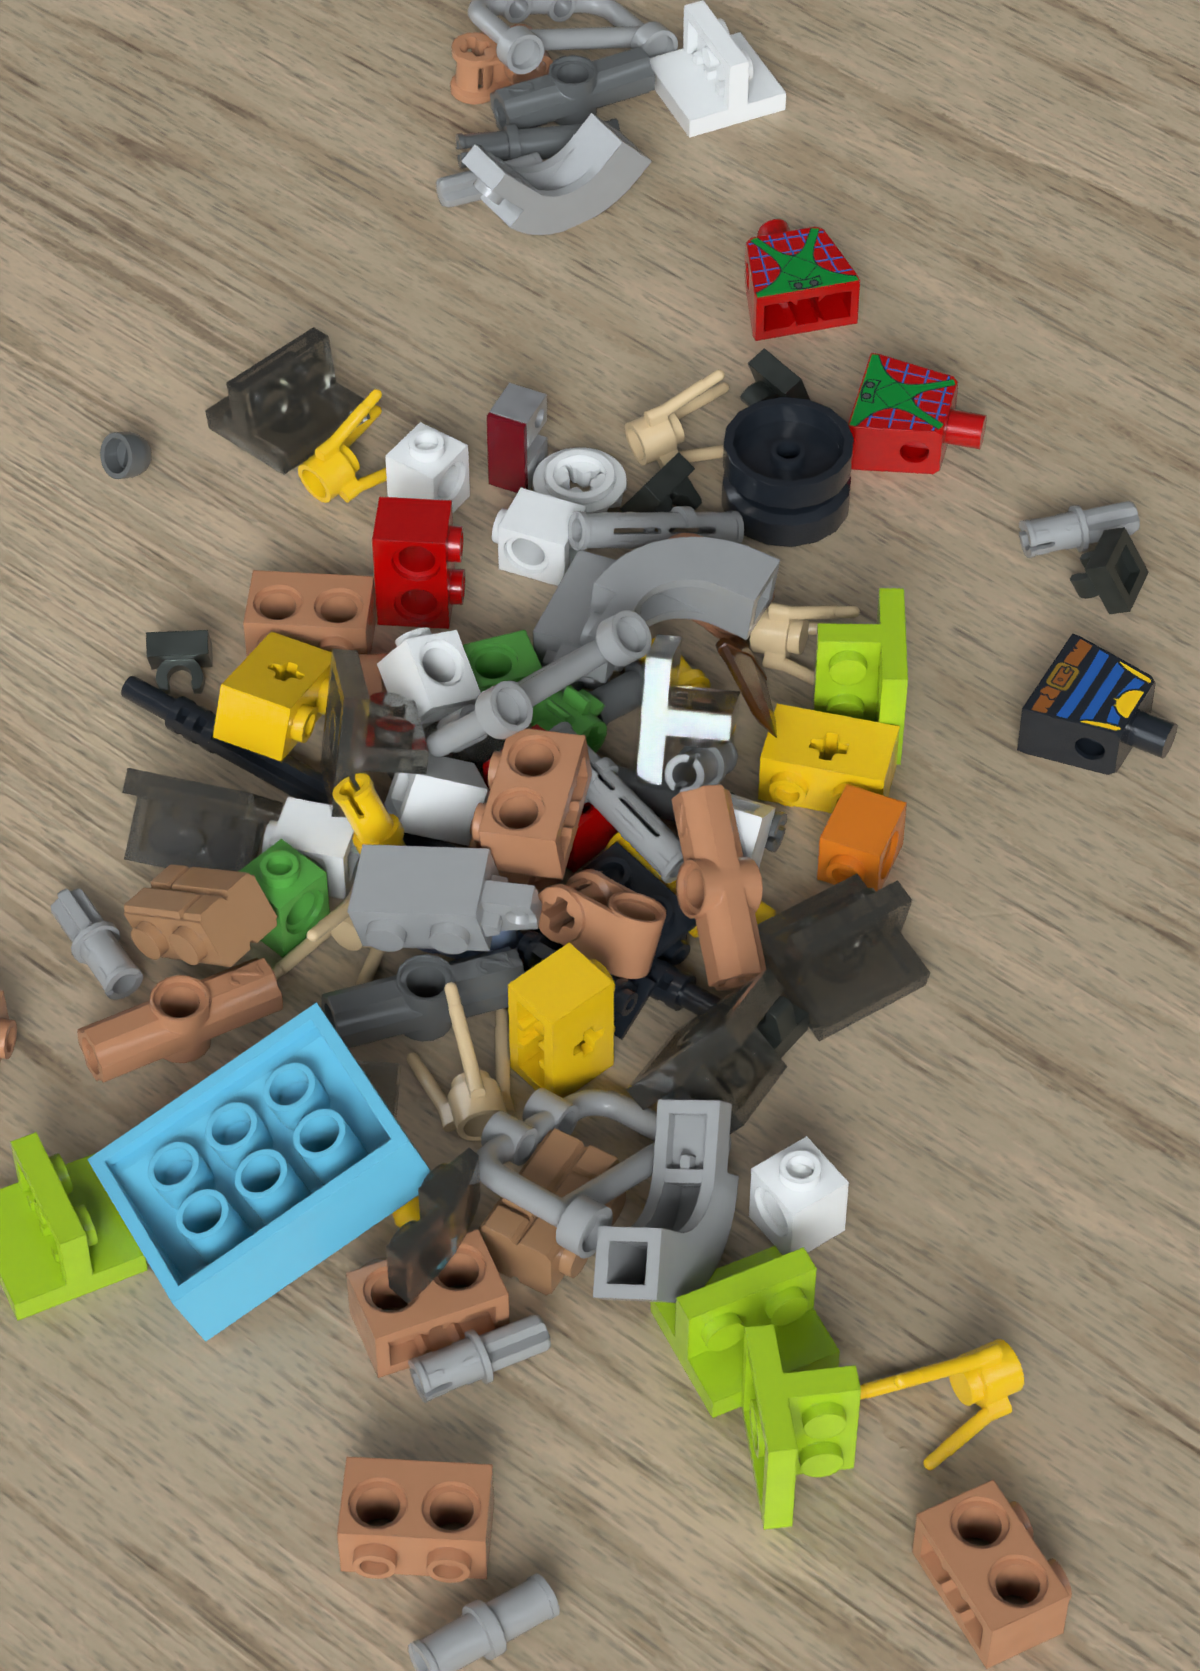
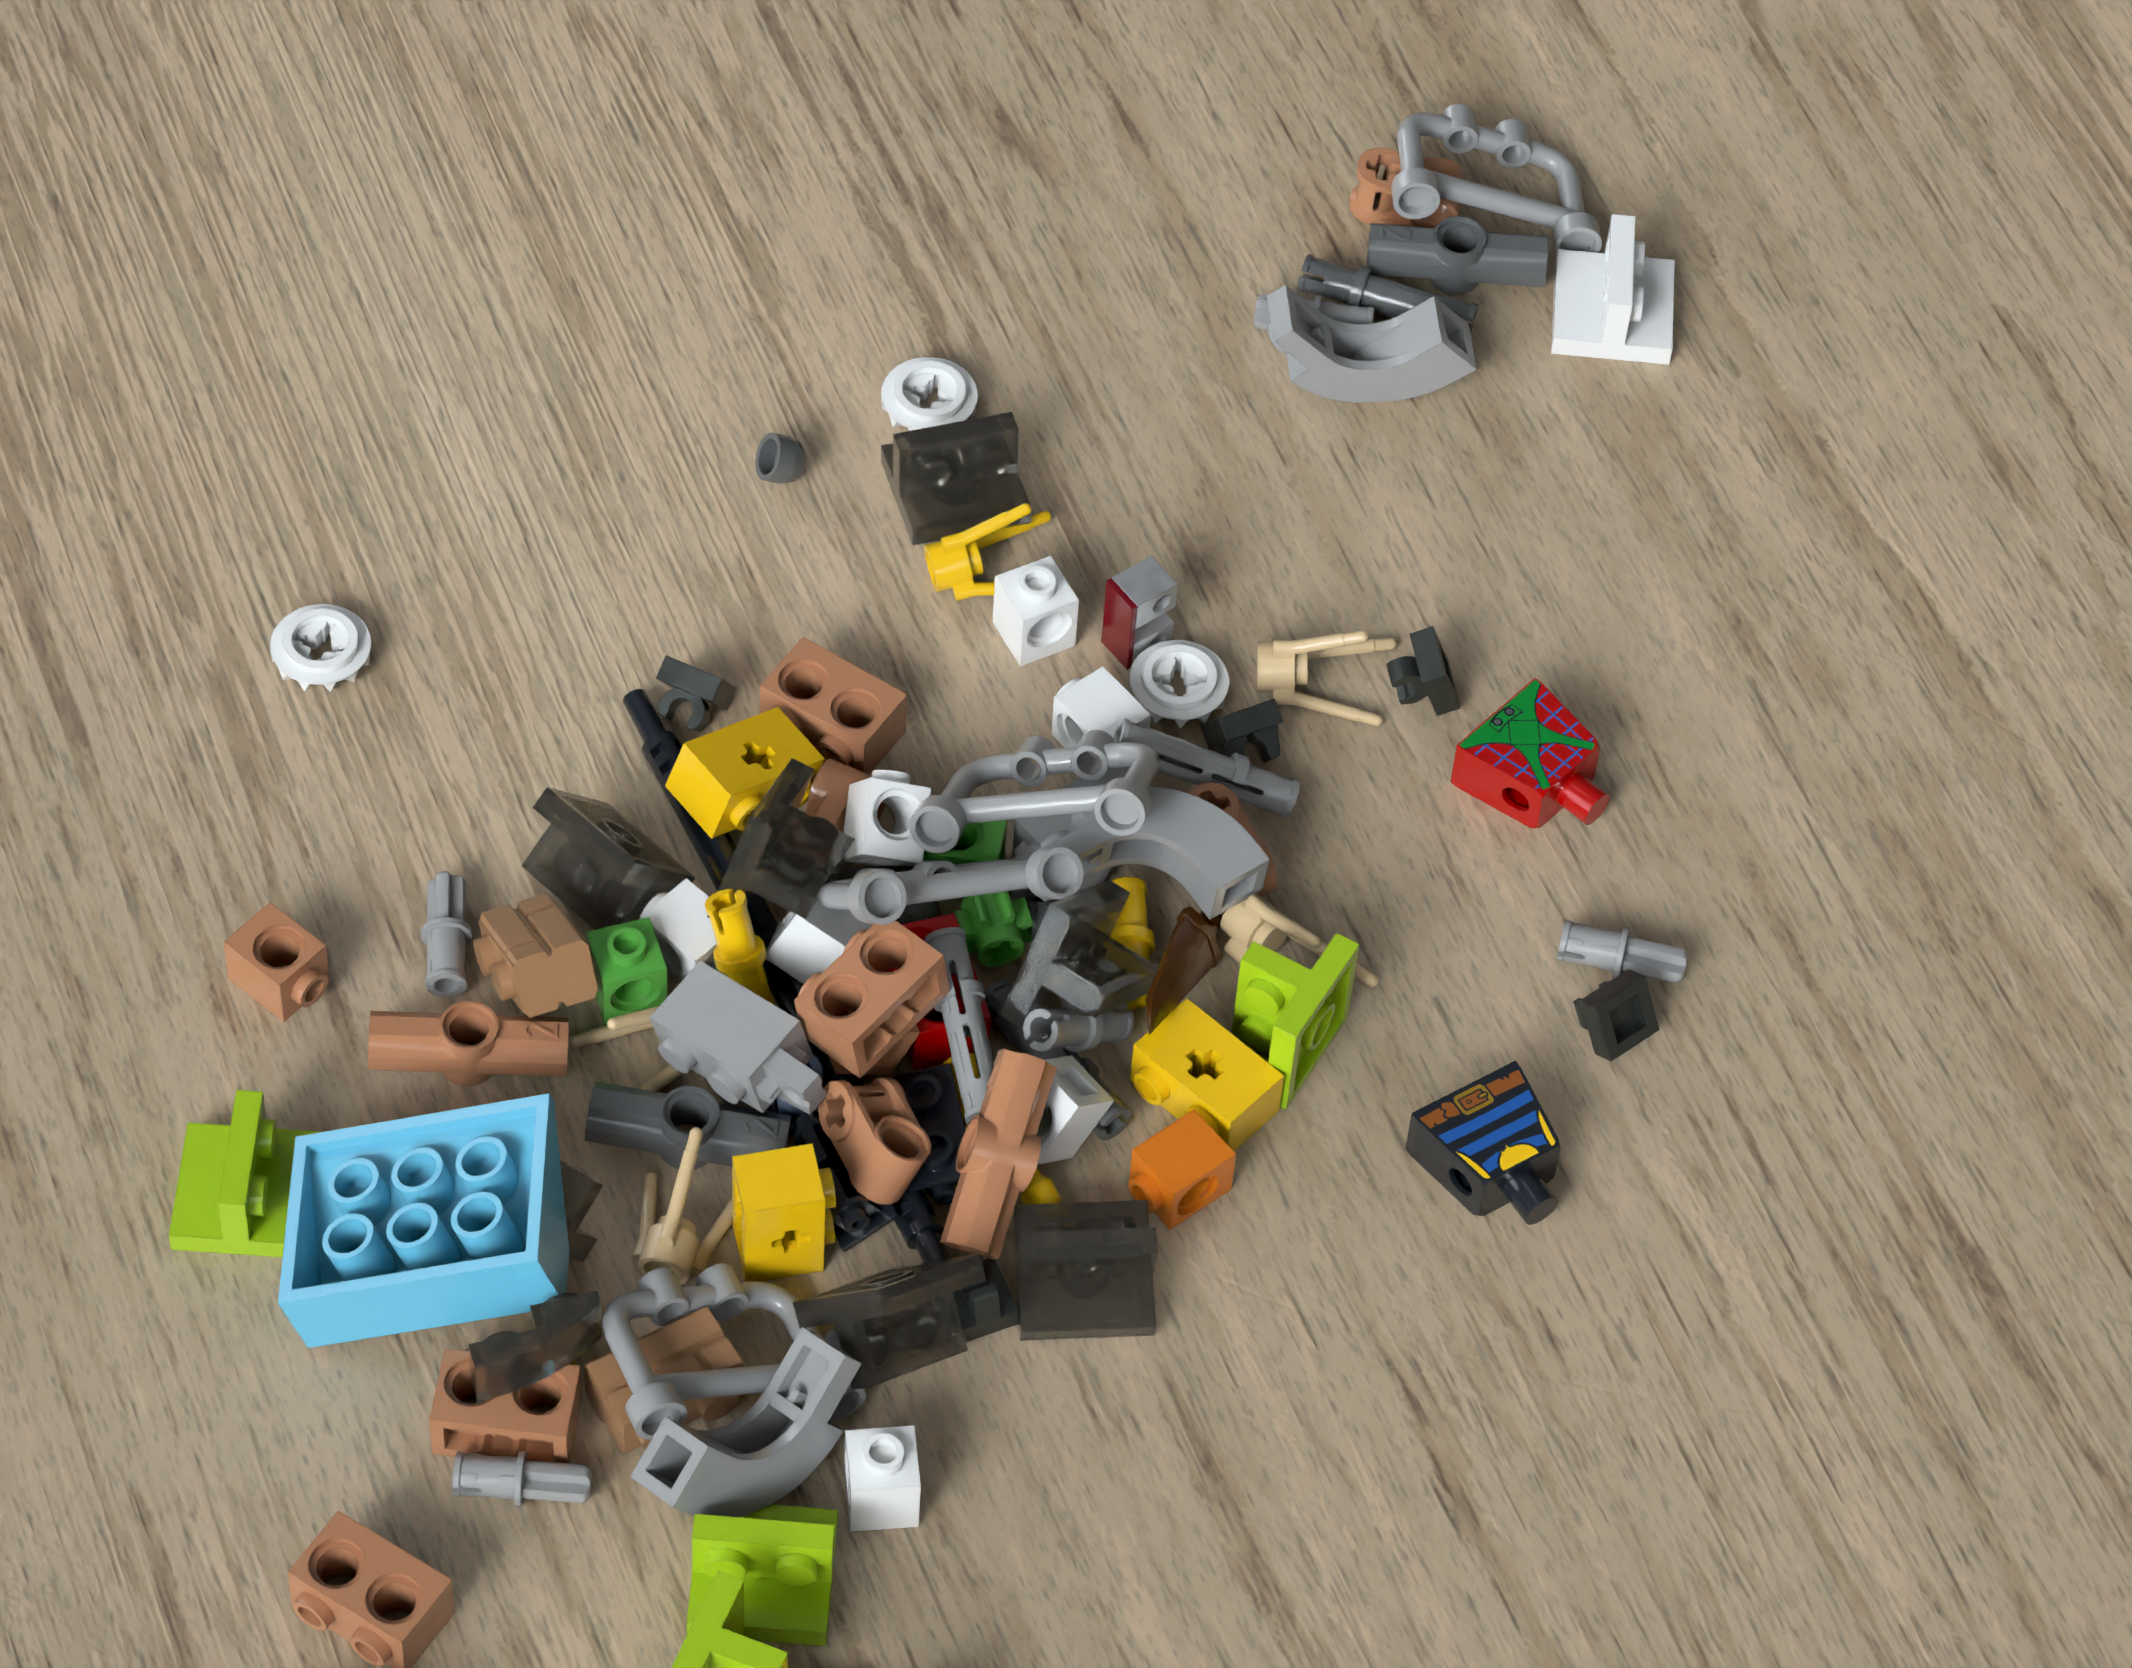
camera: 25 degrees right, 5 degrees up
(196, 353) = (916, 380): none -> white gear
(416, 562) = (953, 697): red brick -> none
(644, 558) = (1118, 805): none -> light grey bar
(788, 471) = (1370, 765): black wheel -> none
(797, 282) = (1528, 563): red torso -> none

